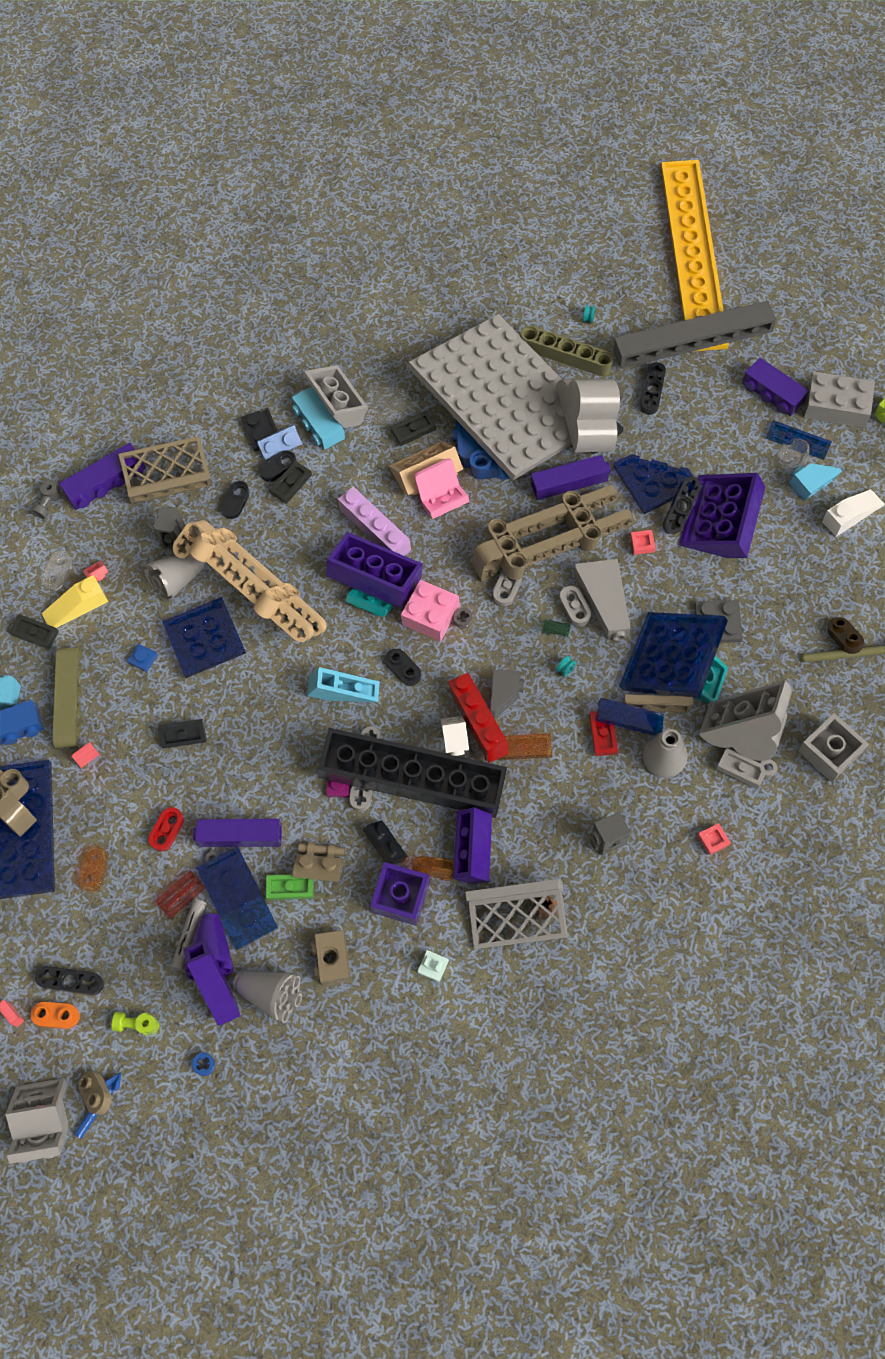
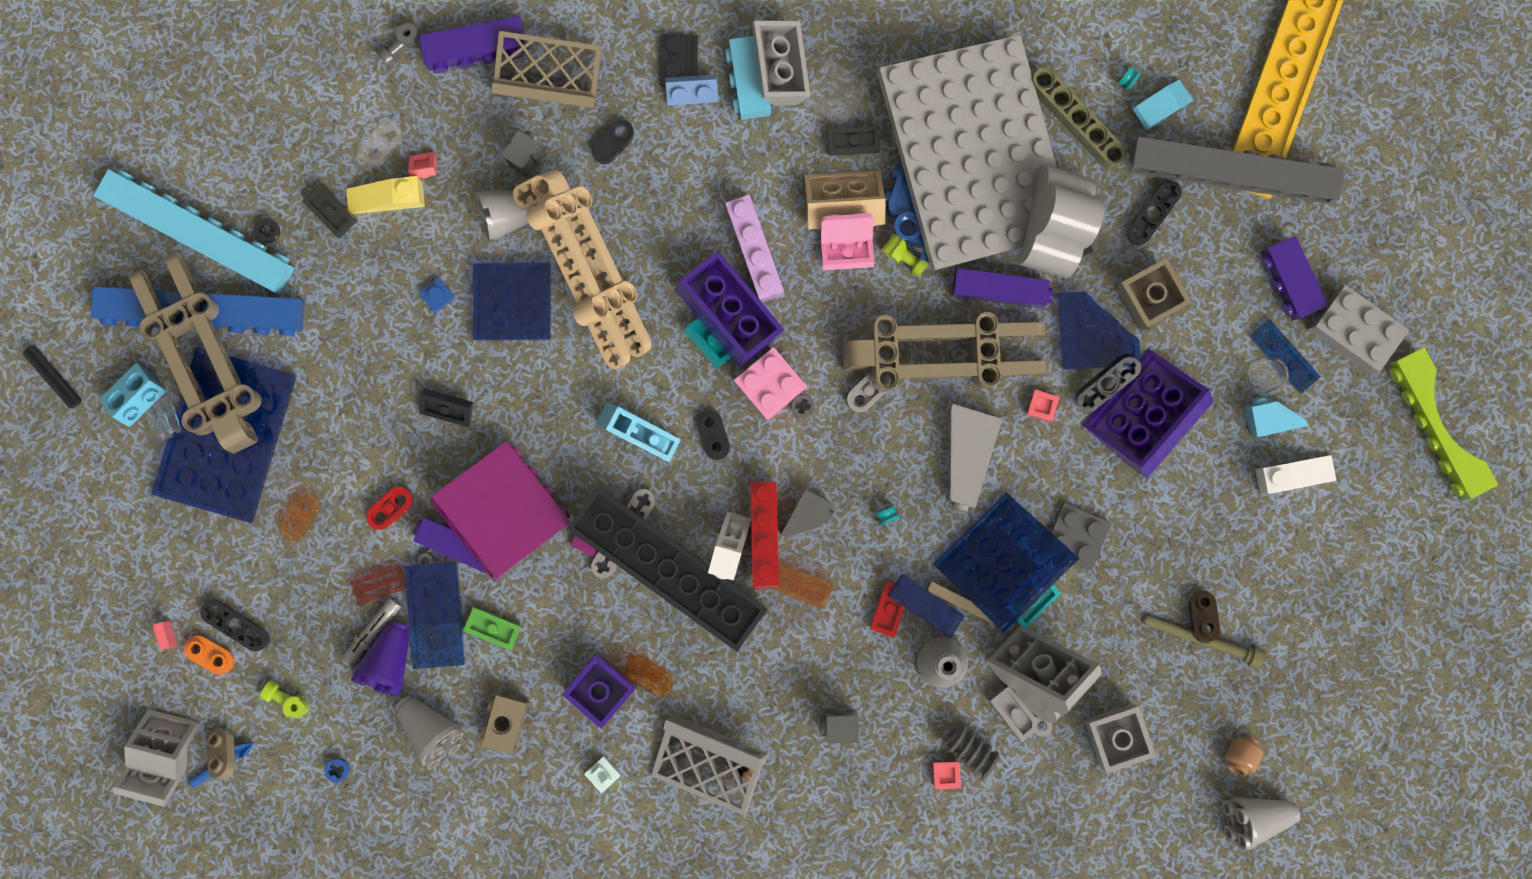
camera: 20 degrees right, 20 degrees up
(66, 698) = (338, 307): olive beam -> none
(85, 755) = (334, 386): coral tile -> none
(211, 982) = (371, 704): dark purple brick -> none
(256, 787) = (500, 510): none -> magenta panel
(273, 468) = (672, 119): black piece -> none
(290, 482) = (684, 148): pearl dark grey plate -> none
(319, 867) = (529, 623): dark tan plate -> none
(384, 842) = (608, 626): black plate -> none
(472, 846) = (695, 673): dark purple brick -> none
(480, 484) = (897, 251): none -> lime leg
(556, 628) = (898, 465): clear green pin -> none
(575, 607) = (931, 448): light grey plate -> none
(620, 319) = (1162, 104): none -> medium azure slope
(681, 434) = (1153, 294): none -> dark tan brick
(724, 809) = (972, 750): none -> dark grey piece

